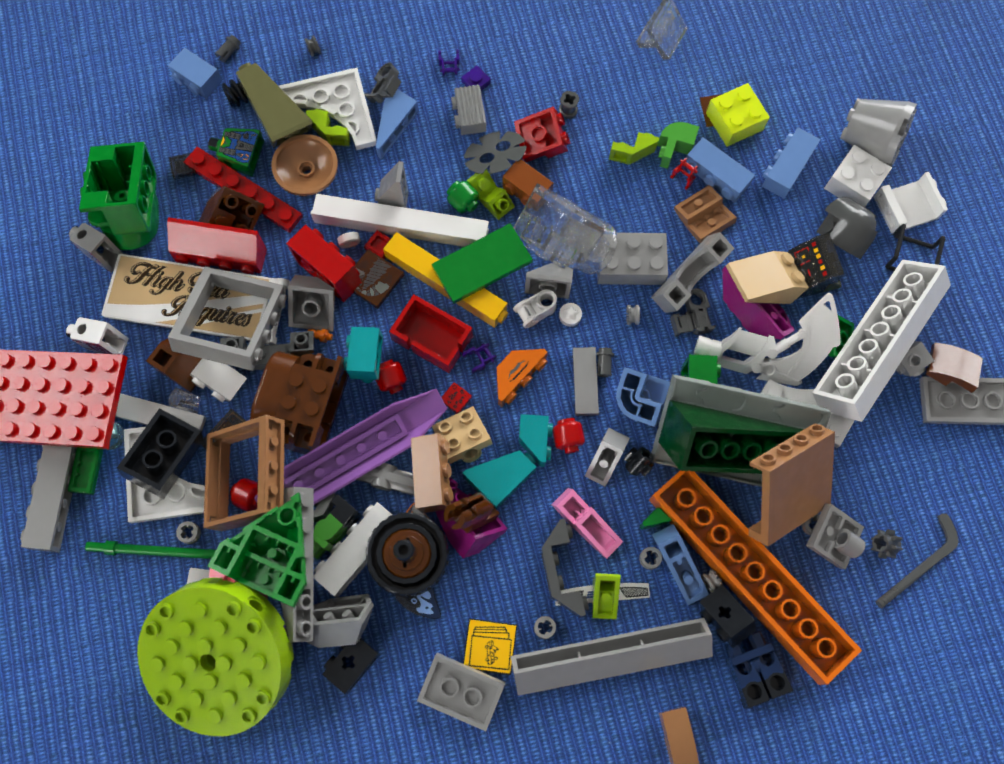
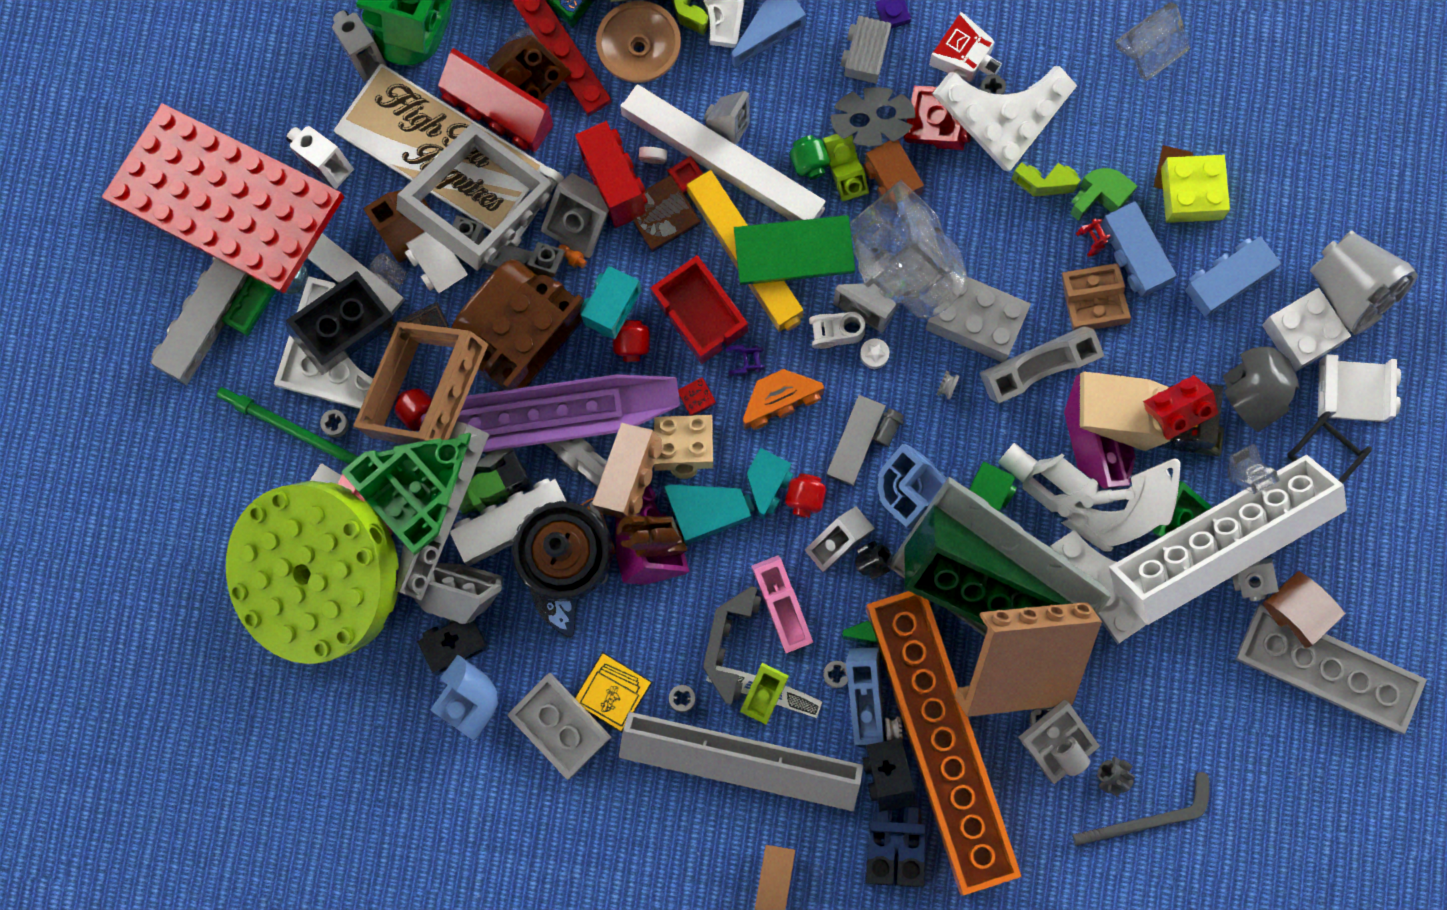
camera: 30 degrees right, 5 degrees up
(382, 703) = (467, 699): none -> medium blue brick
(538, 85) = (965, 50): none -> torso
(585, 120) = (1005, 122): none -> white plate
(696, 320) = (1022, 422): dark grey piece -> none
(809, 257) = (1182, 406): none -> red bracket
(870, 287) = (1249, 472): none -> clear slope

